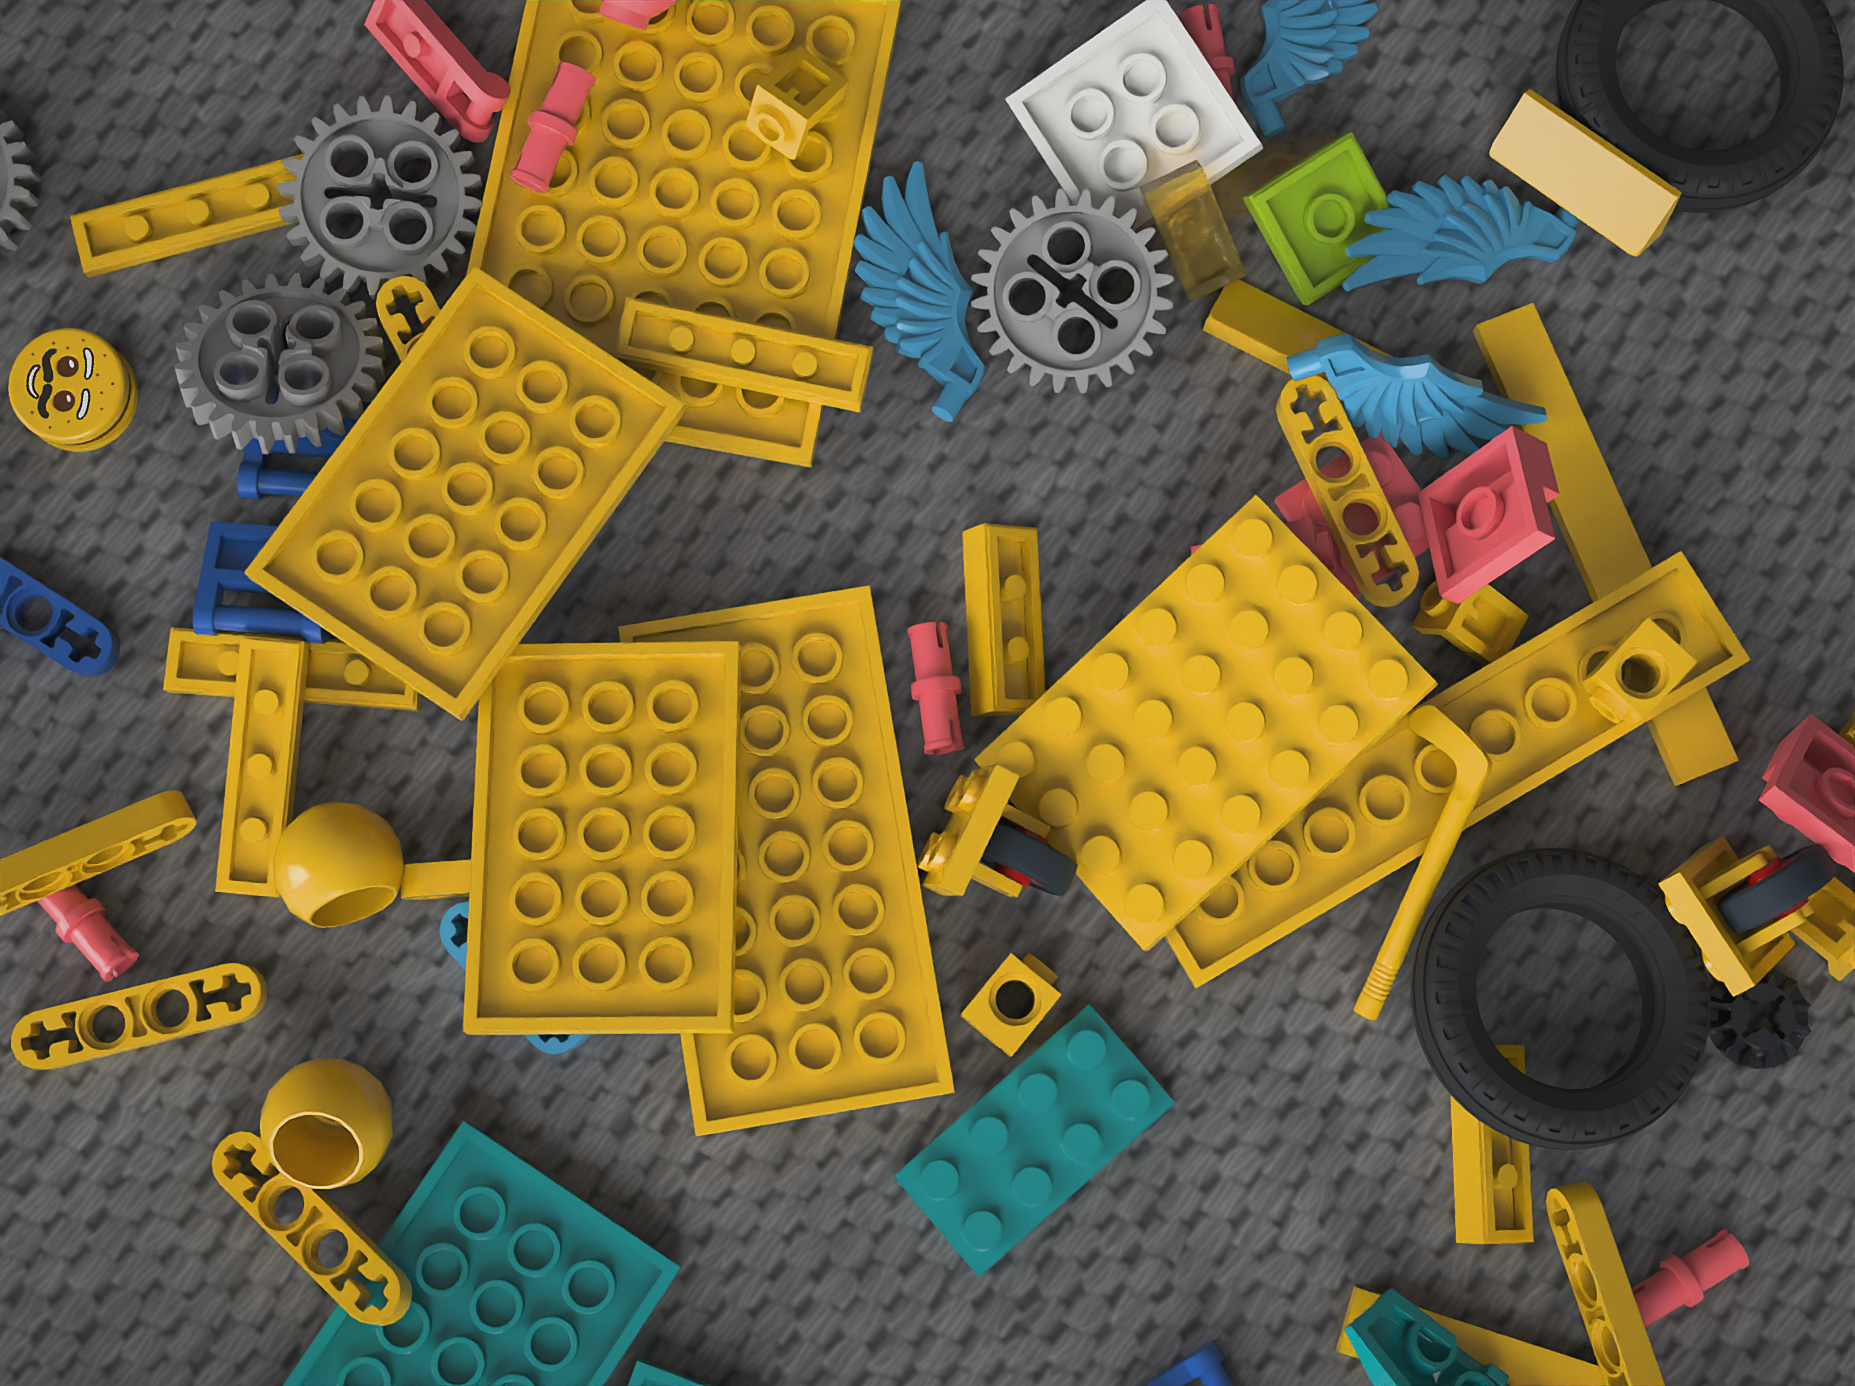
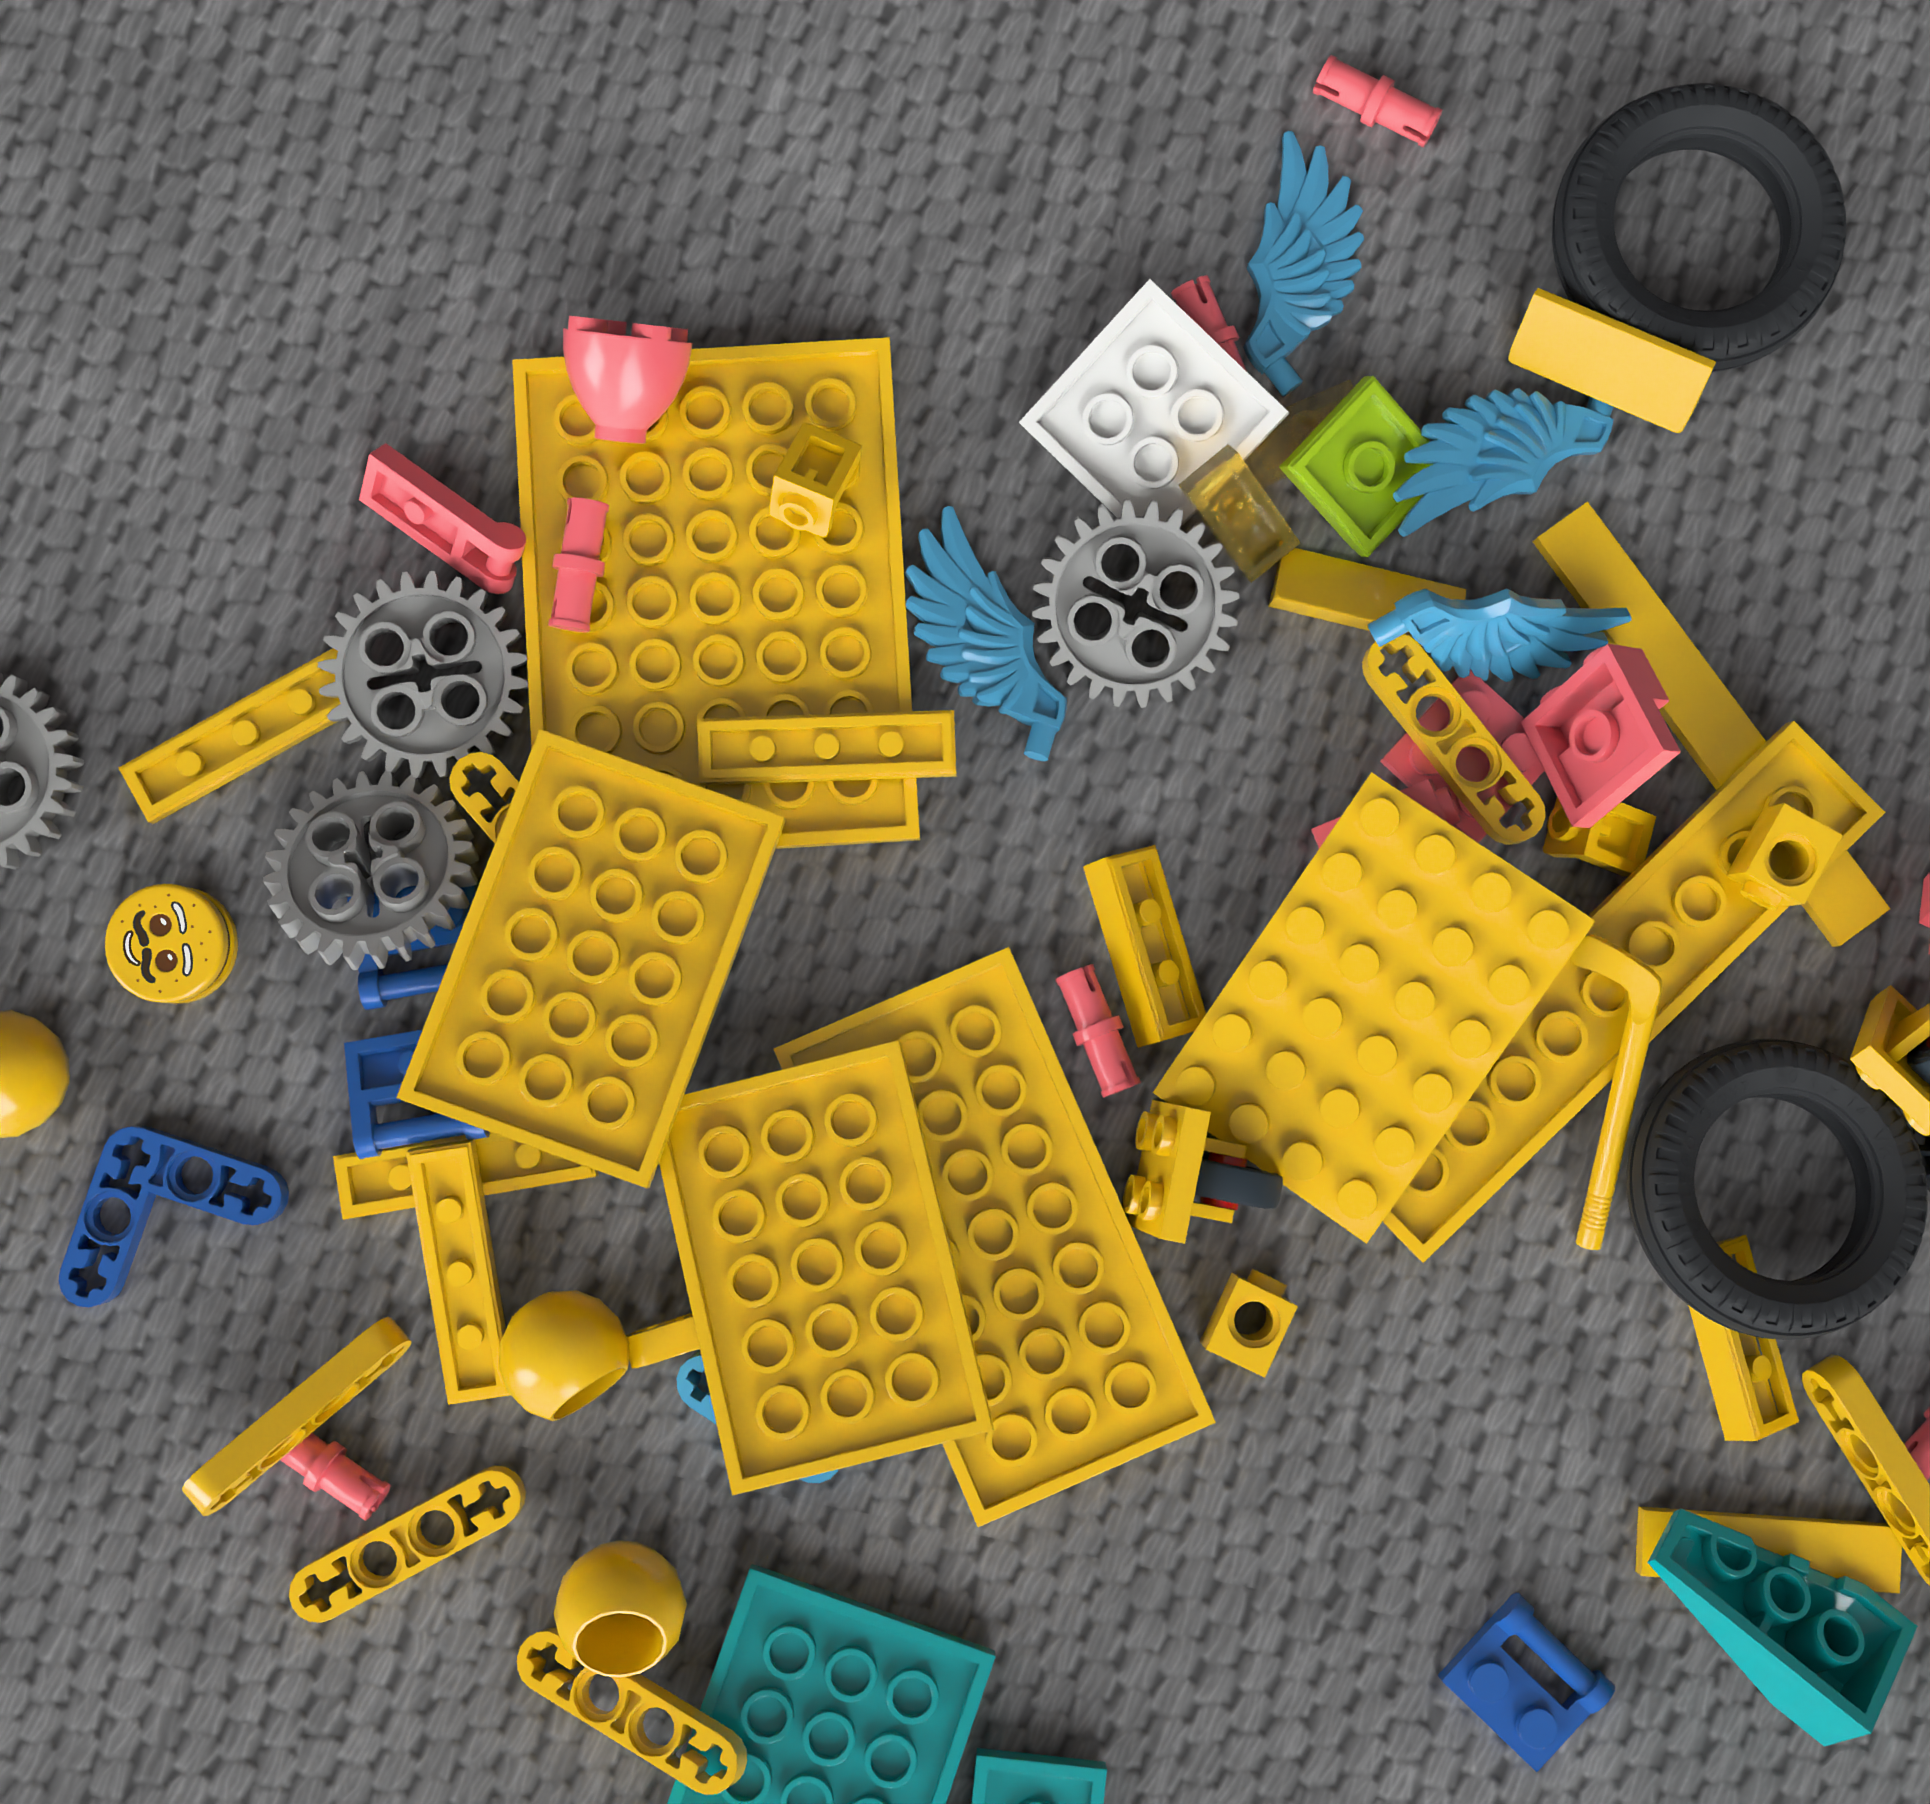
camera: 15 degrees left, 5 degrees up
(1034, 1140) = (1300, 1445): teal plate -> none

